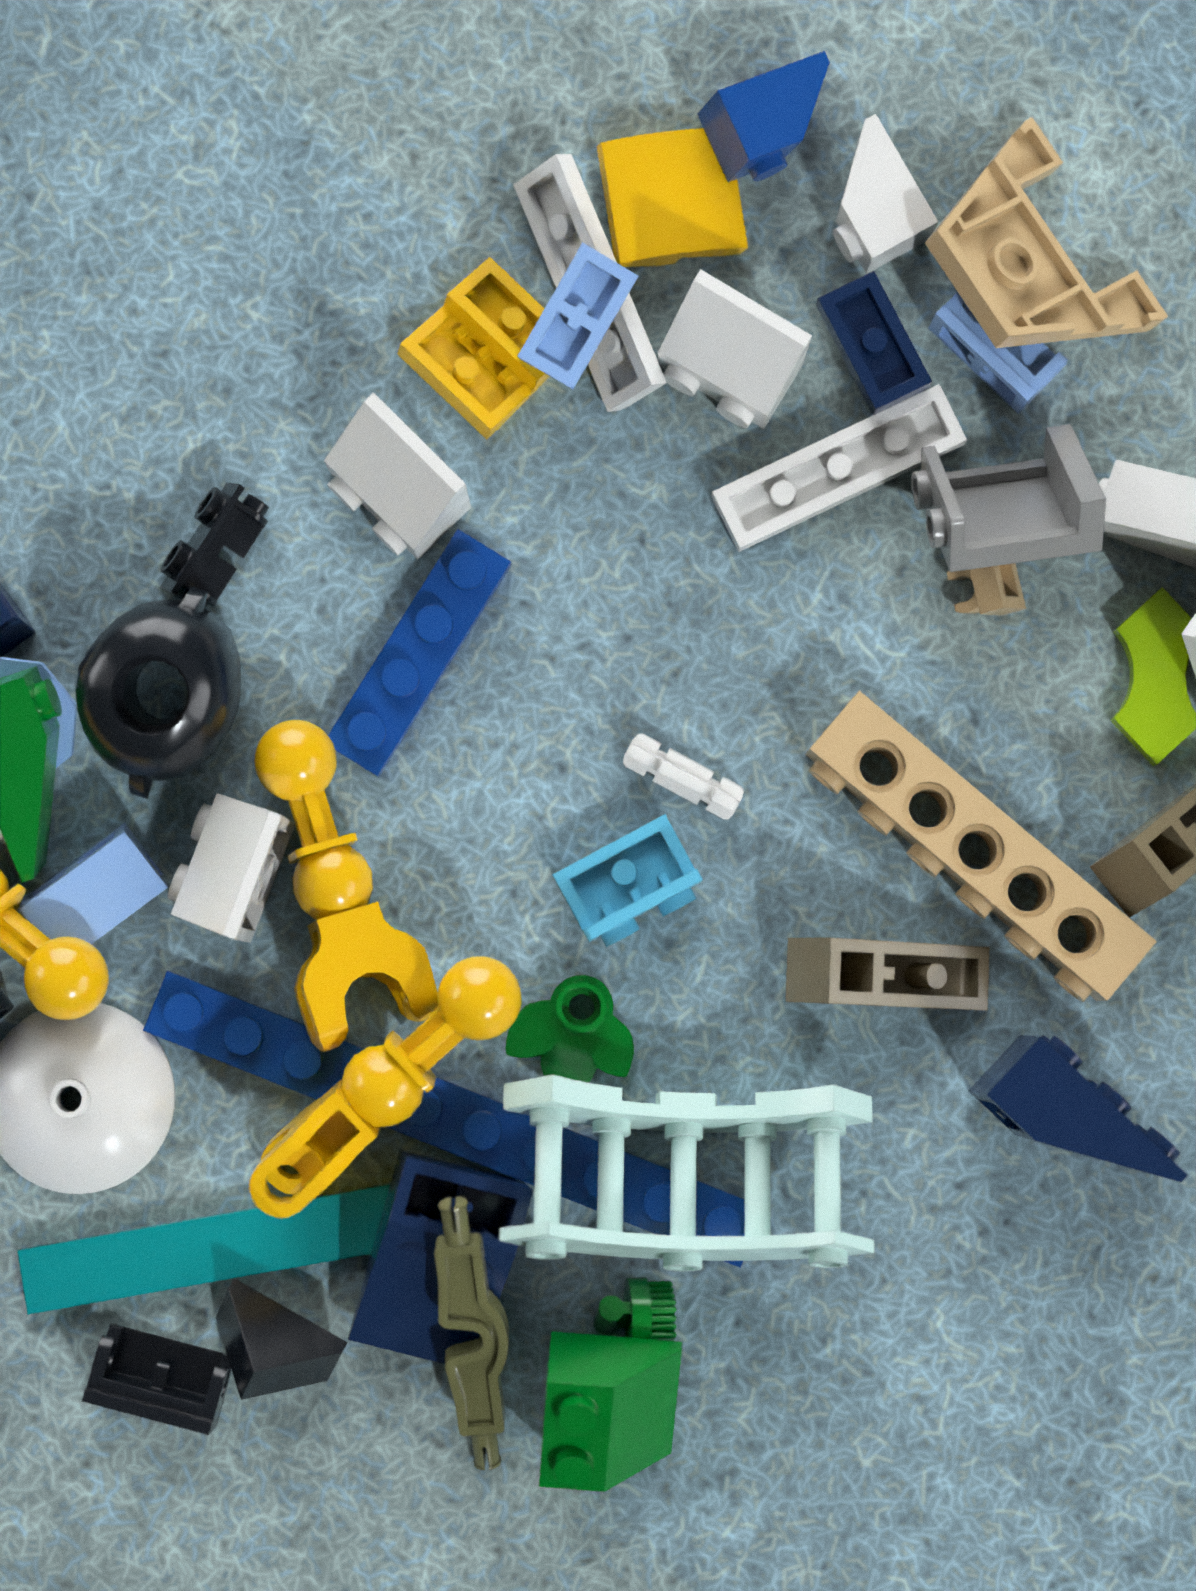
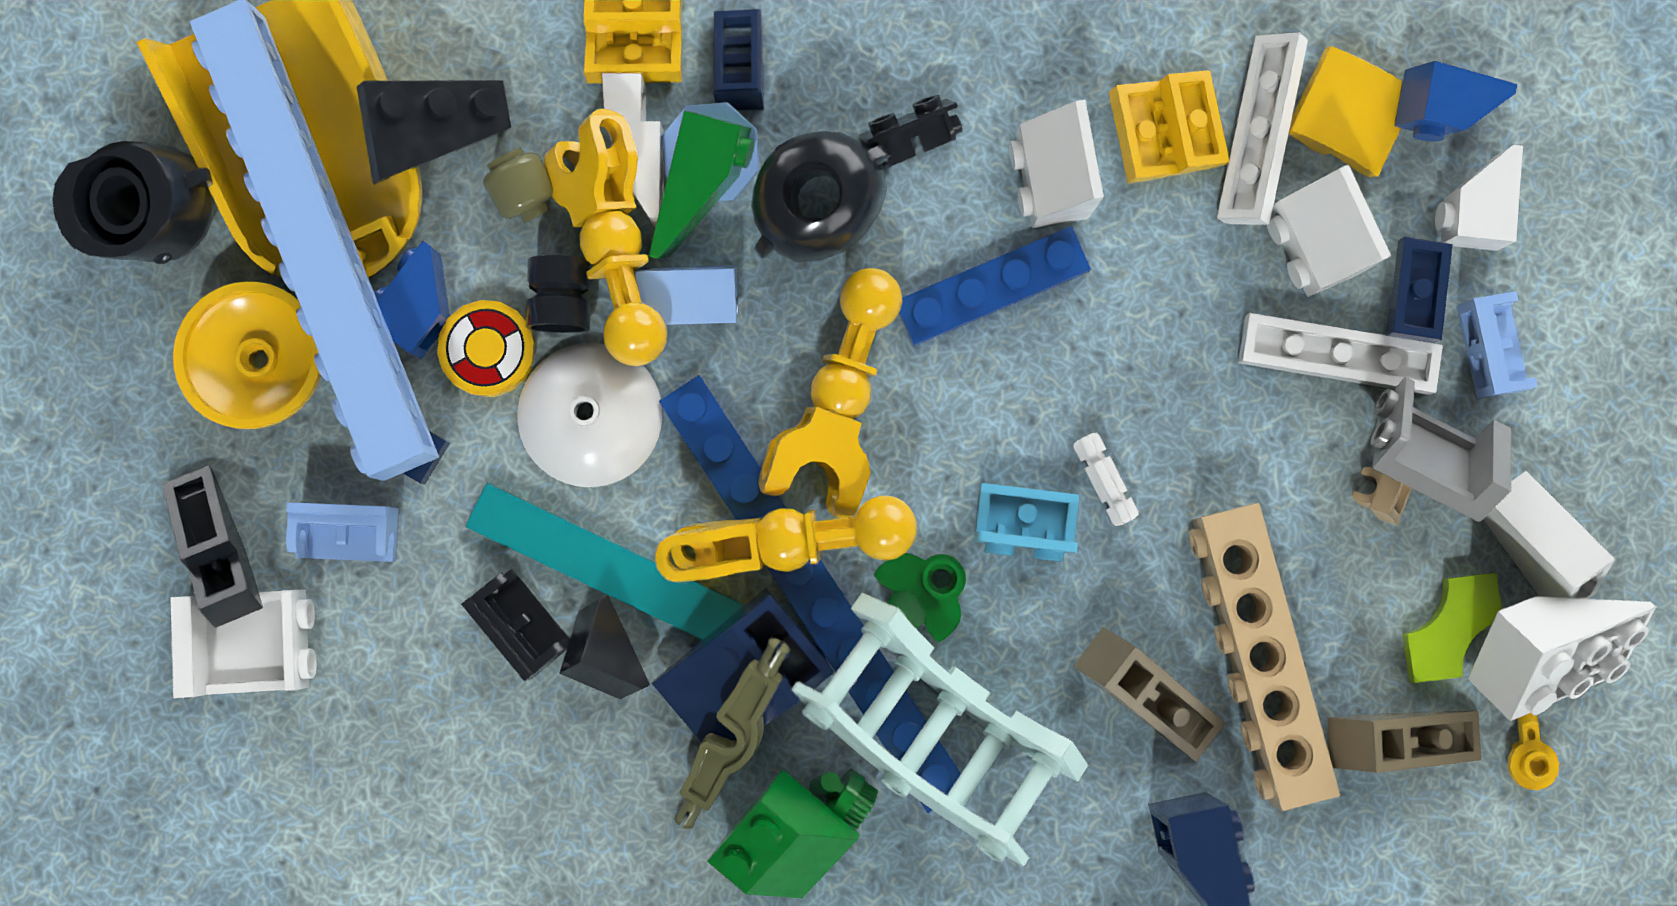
camera: 35 degrees right, 0 degrees up
(230, 867) = (785, 336): white slope -> none
(577, 316) = (1245, 141): light blue hinge -> none
(1016, 269) = (1545, 306): tan wing -> none

